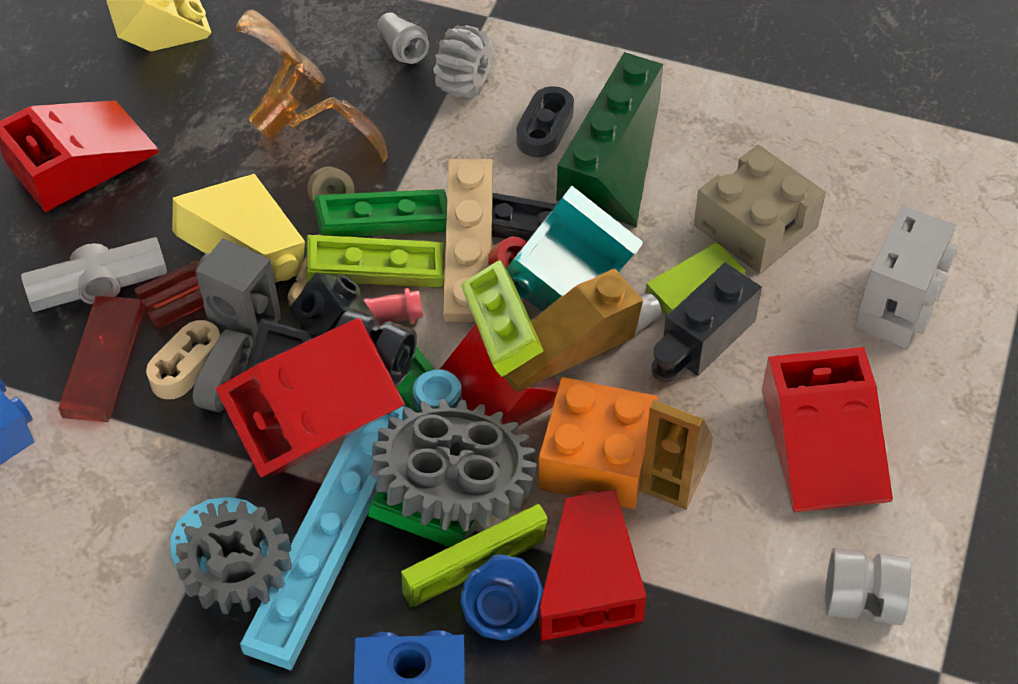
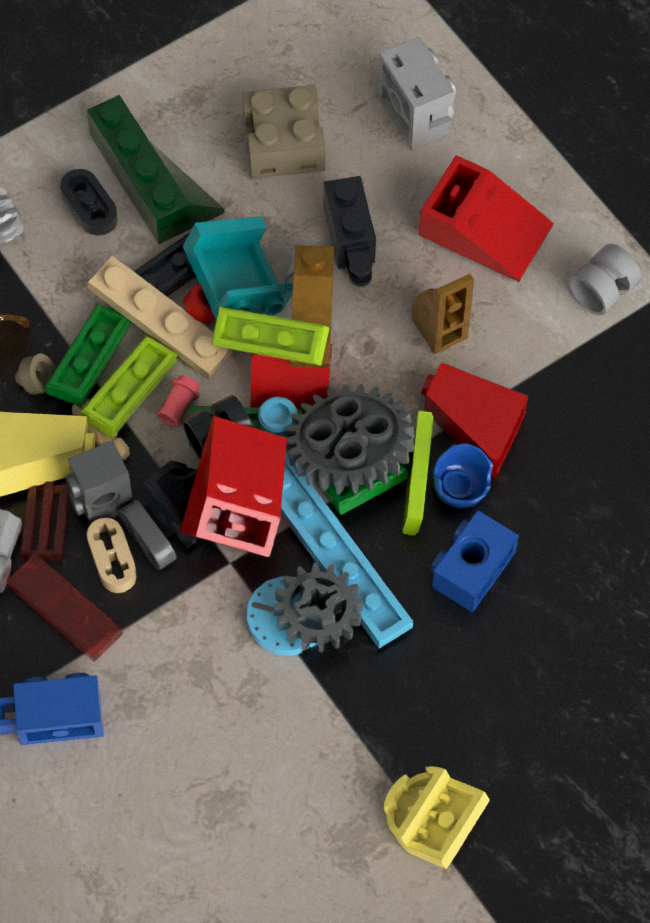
camera: 55 degrees left, 10 degrees up
(325, 301) = (155, 437): black brick -> none
(595, 441) = (391, 348): orange brick -> none
(681, 280) = (304, 210): lime tile -> none

